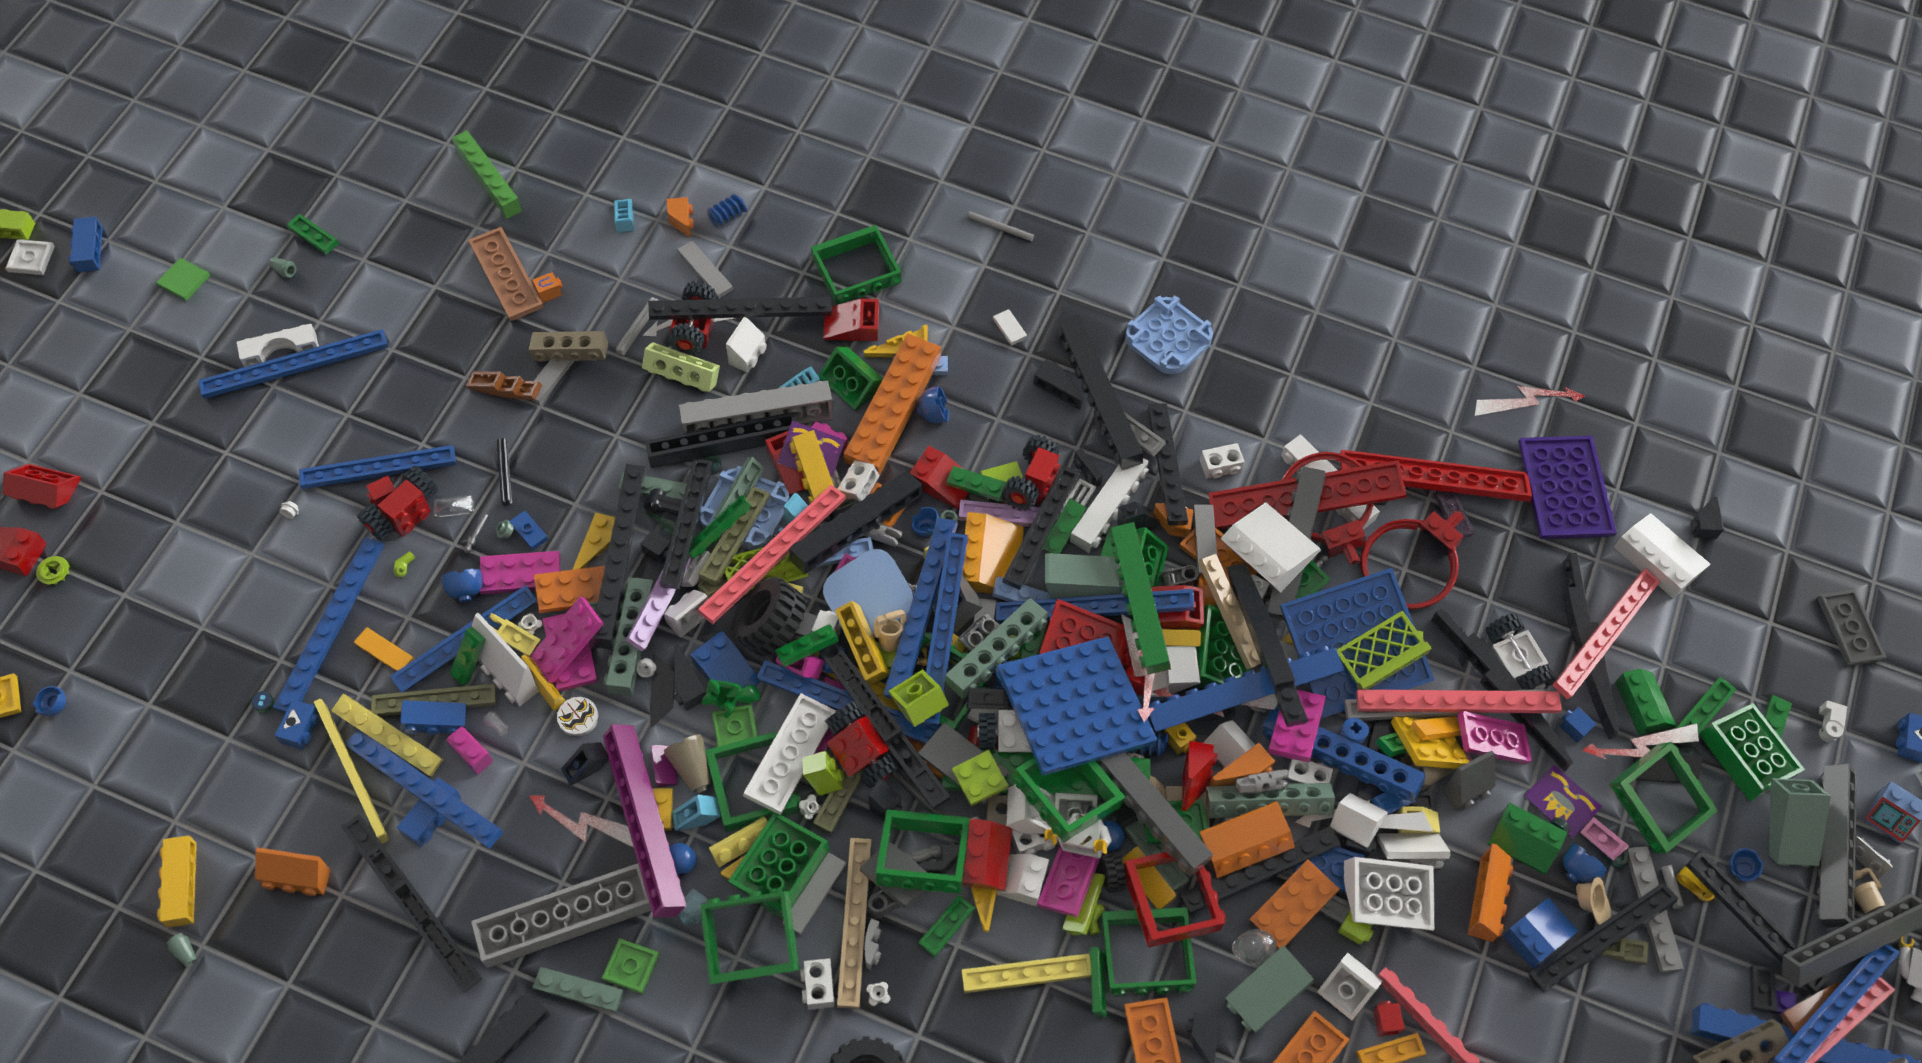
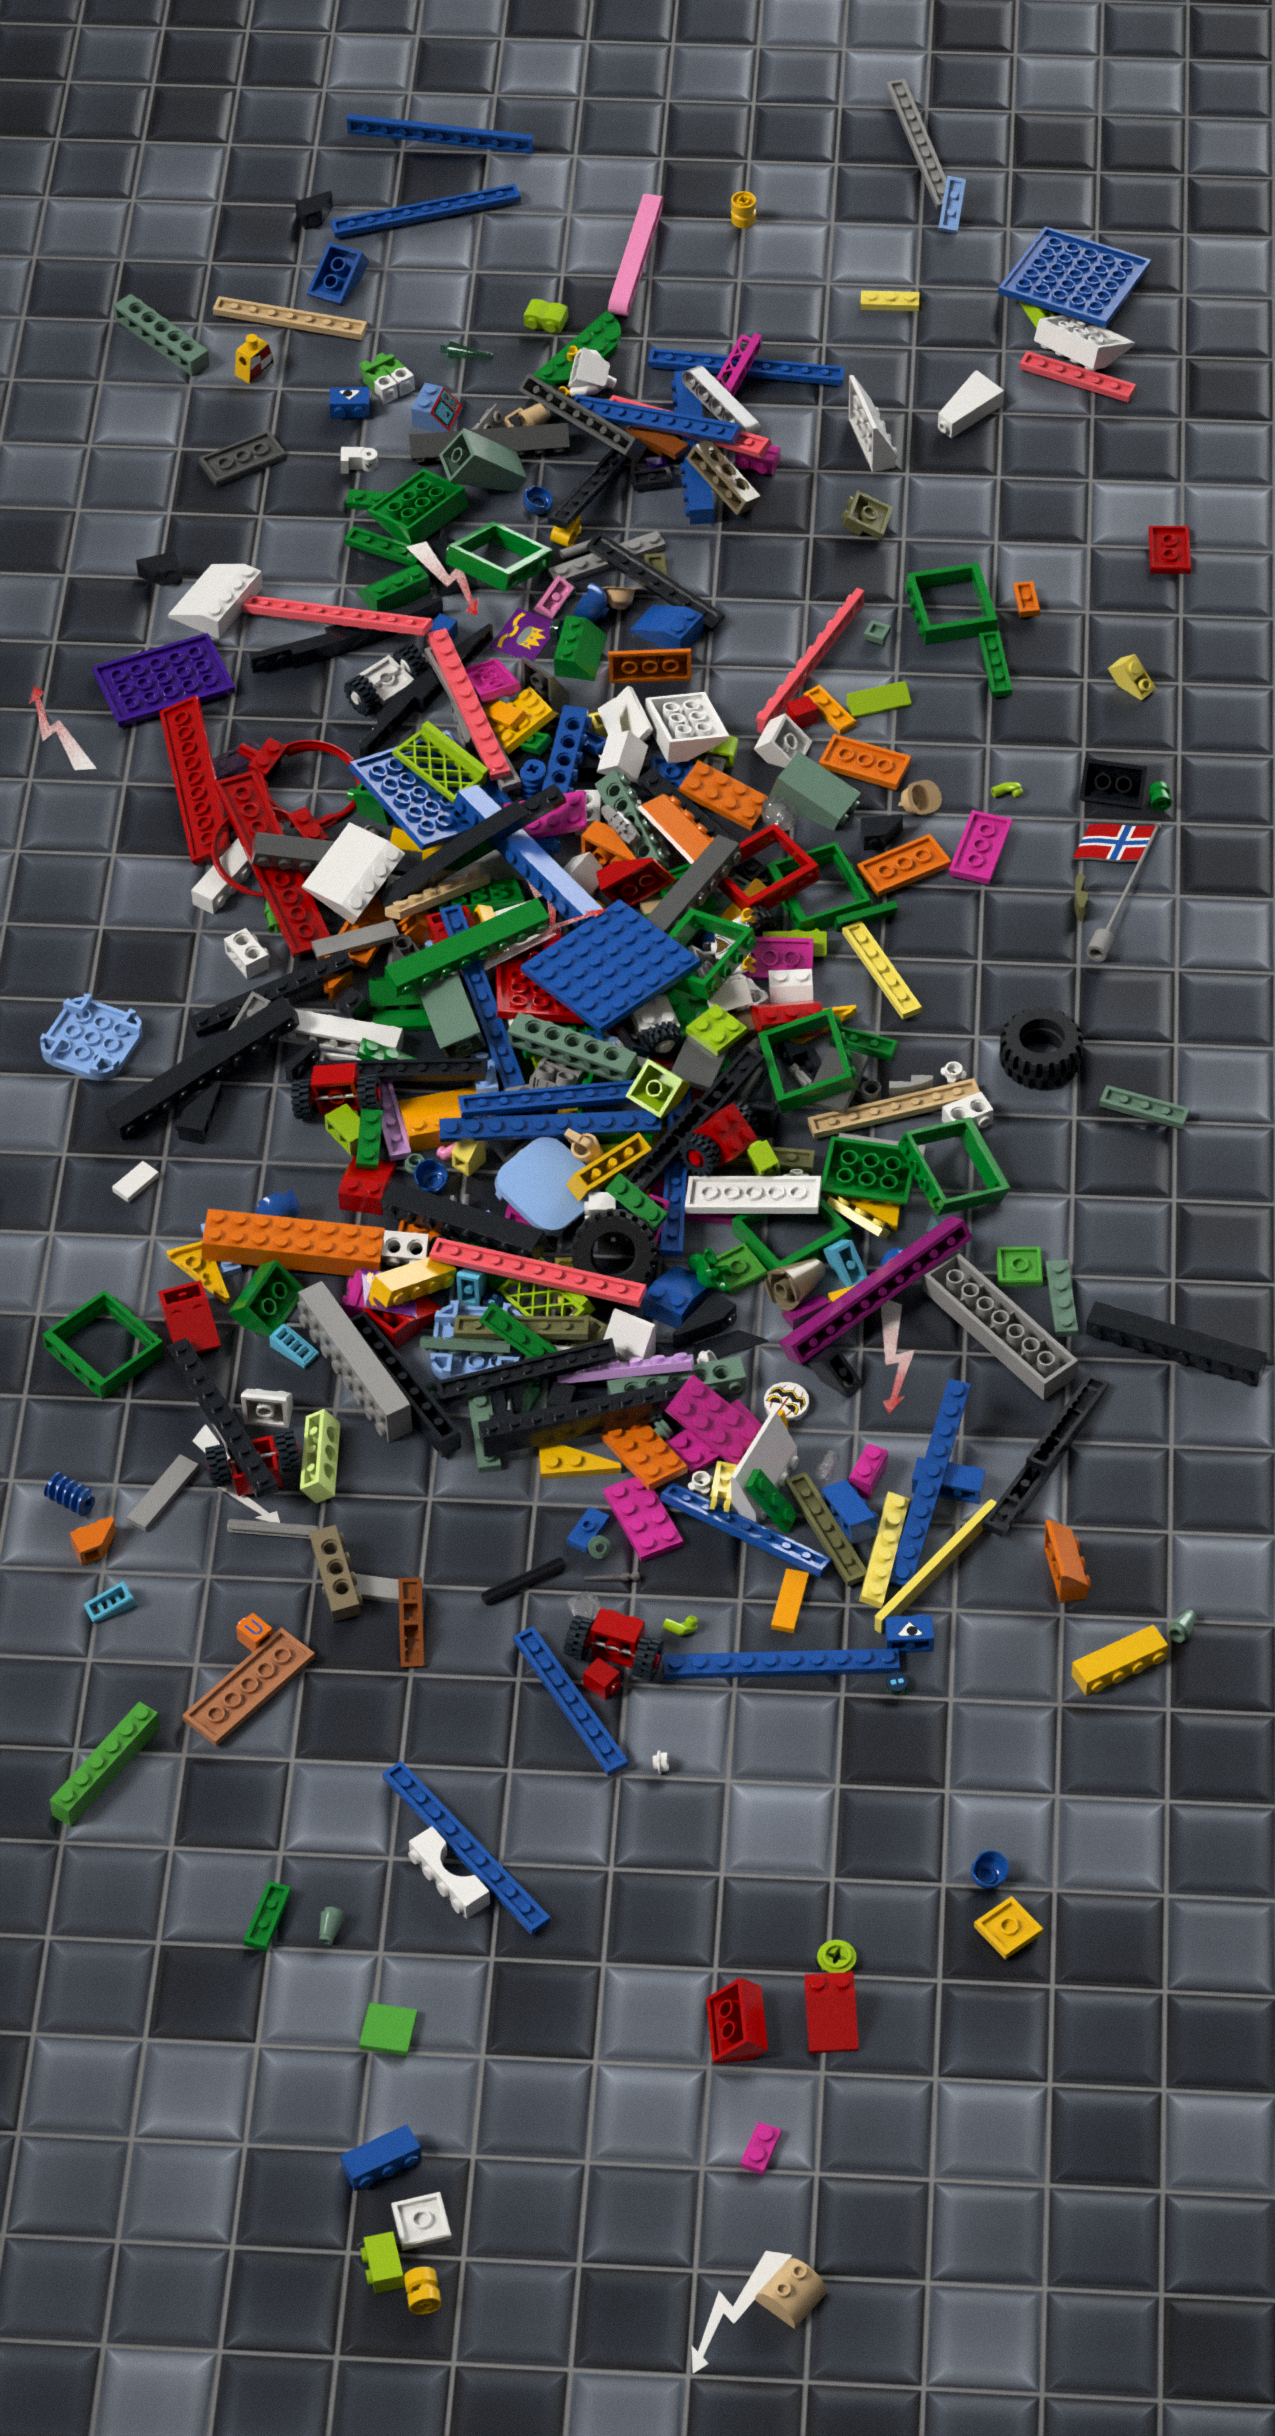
camera: 105 degrees left, 10 degrees down
(462, 584) = (683, 1551): blue cylinder -> none

